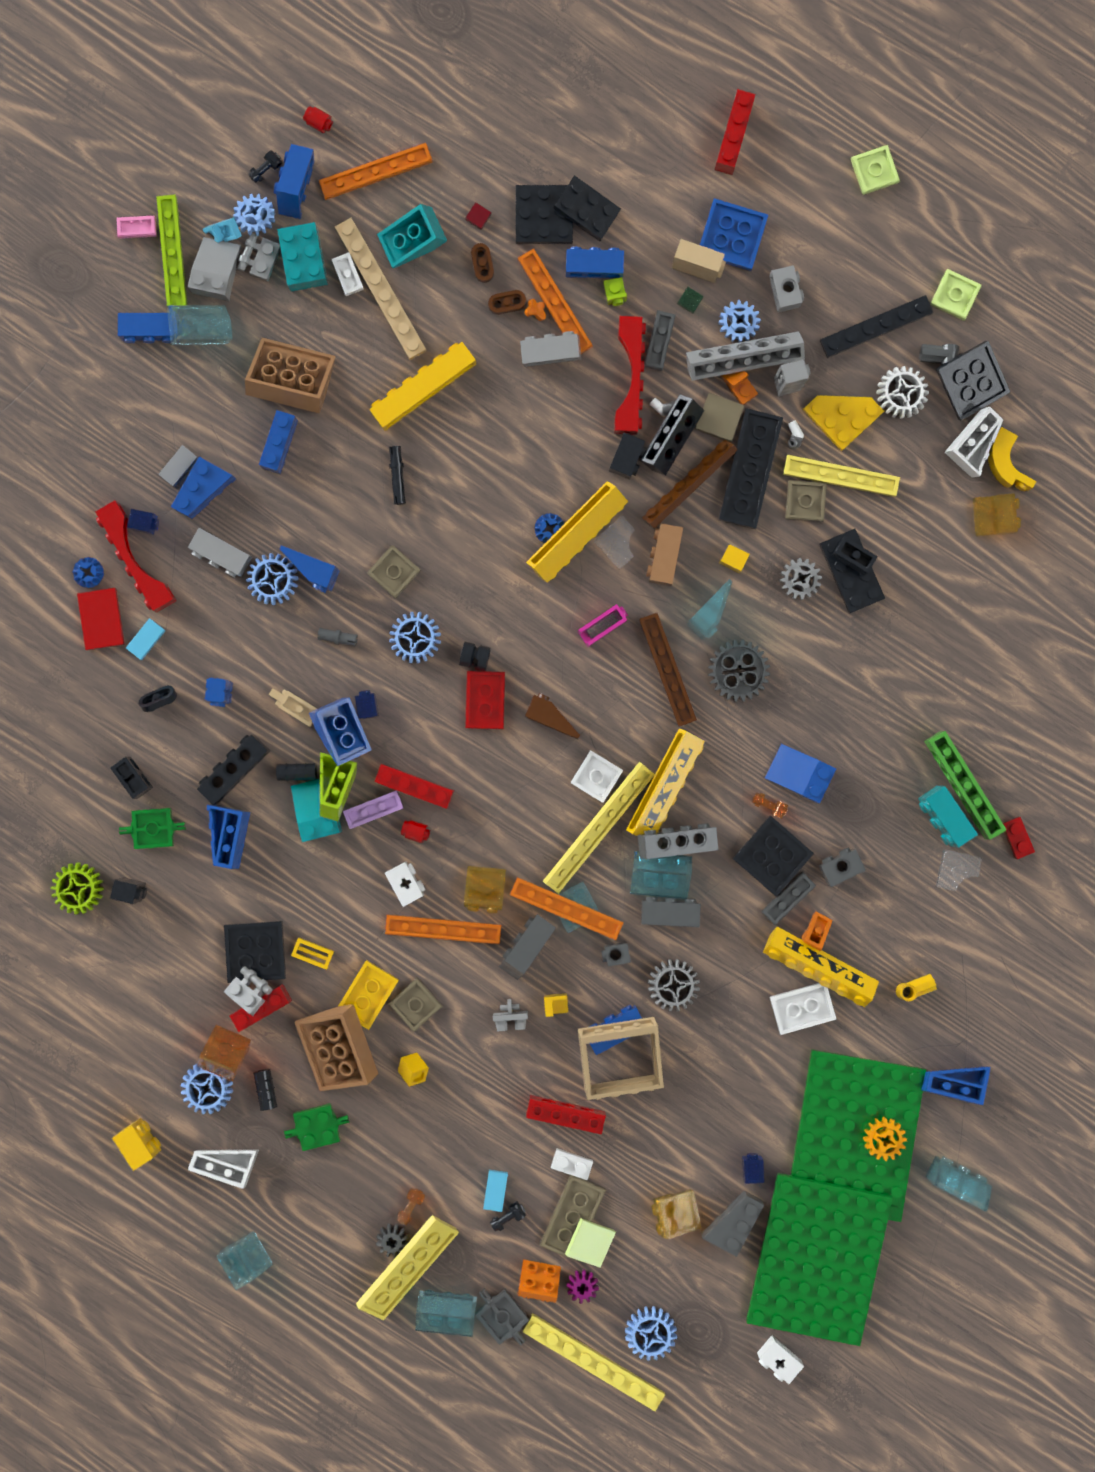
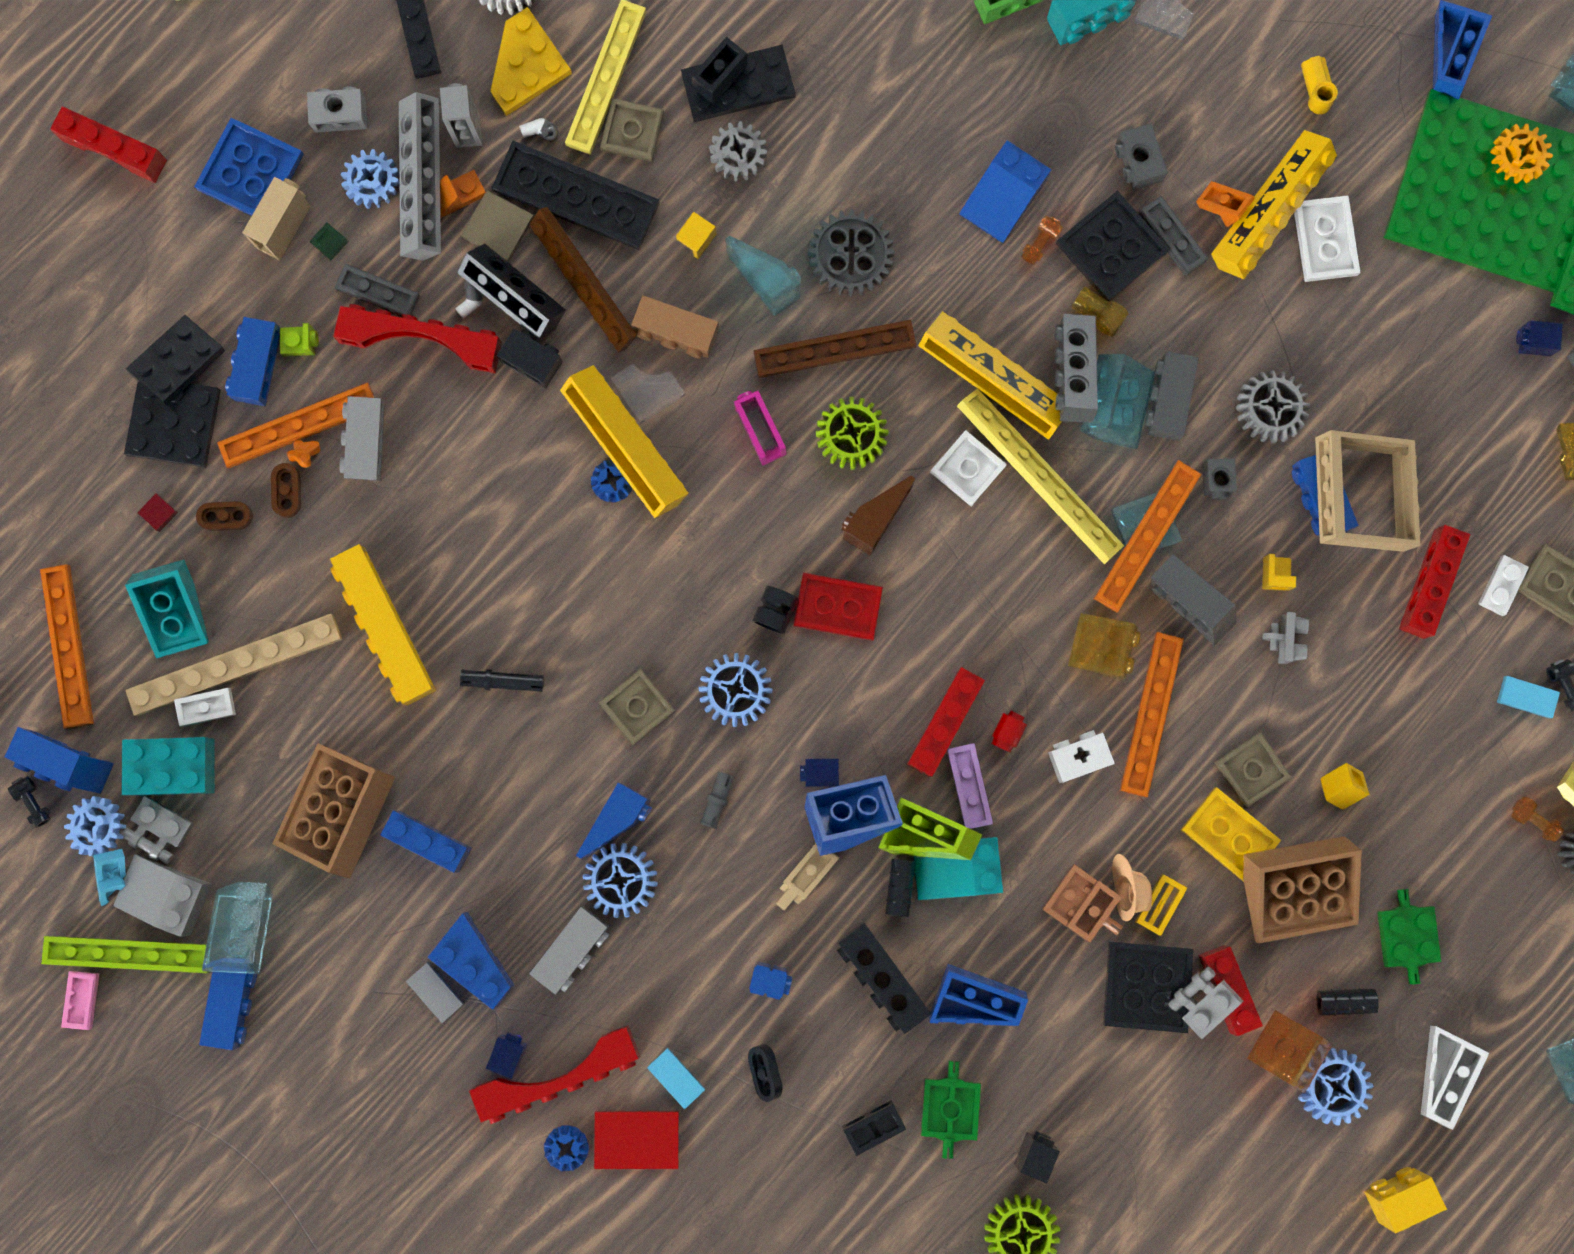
camera: 80 degrees left, 5 degrees down
(304, 899) = (1083, 904): none -> nougat plate
(318, 932) = (1132, 887): none -> light nougat piece
(593, 698) = (859, 454): none -> lime gear
(722, 858) = (1108, 314): none -> clear yellow piece

